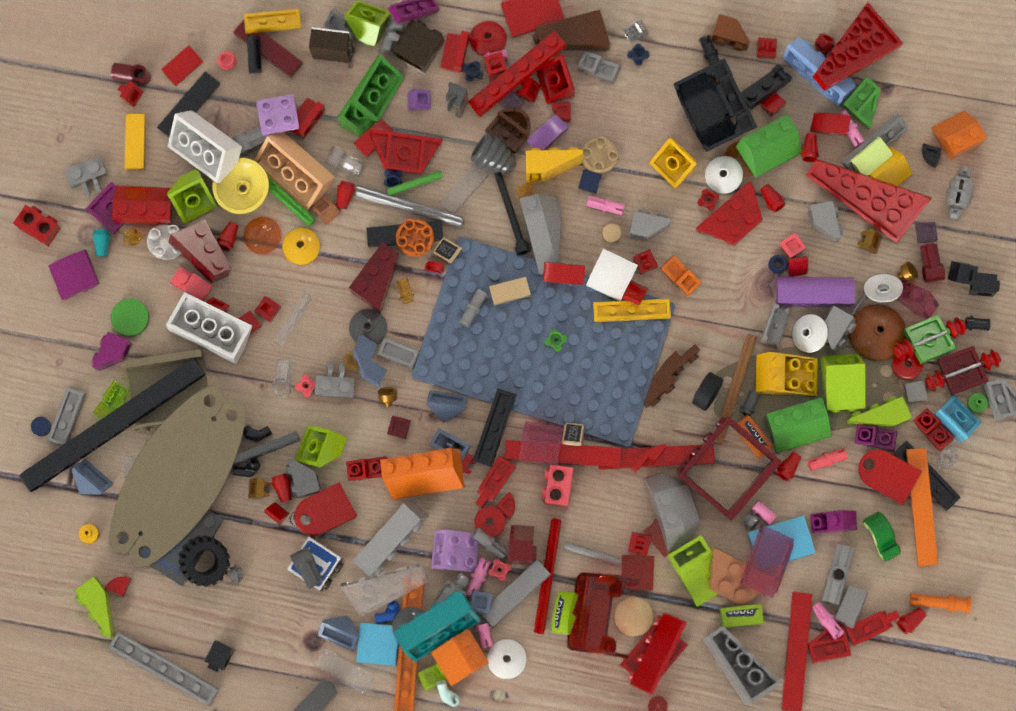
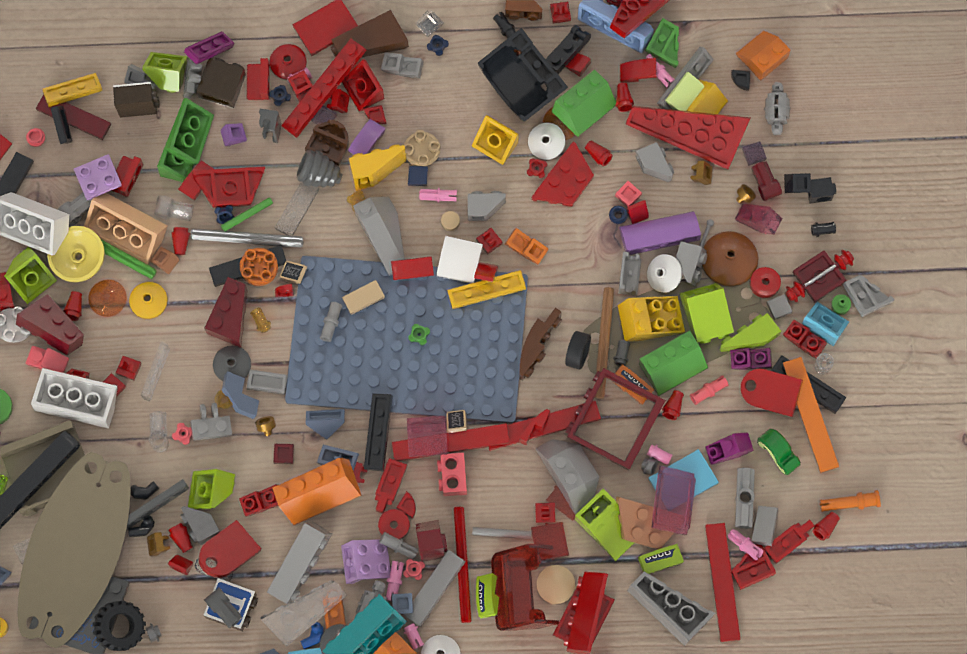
camera: 15 degrees left, 5 degrees down
(522, 246) = (365, 252): black piece -> none
(883, 288) = (725, 214): white dish -> none
(929, 339) = (780, 253): bright green plate -> none

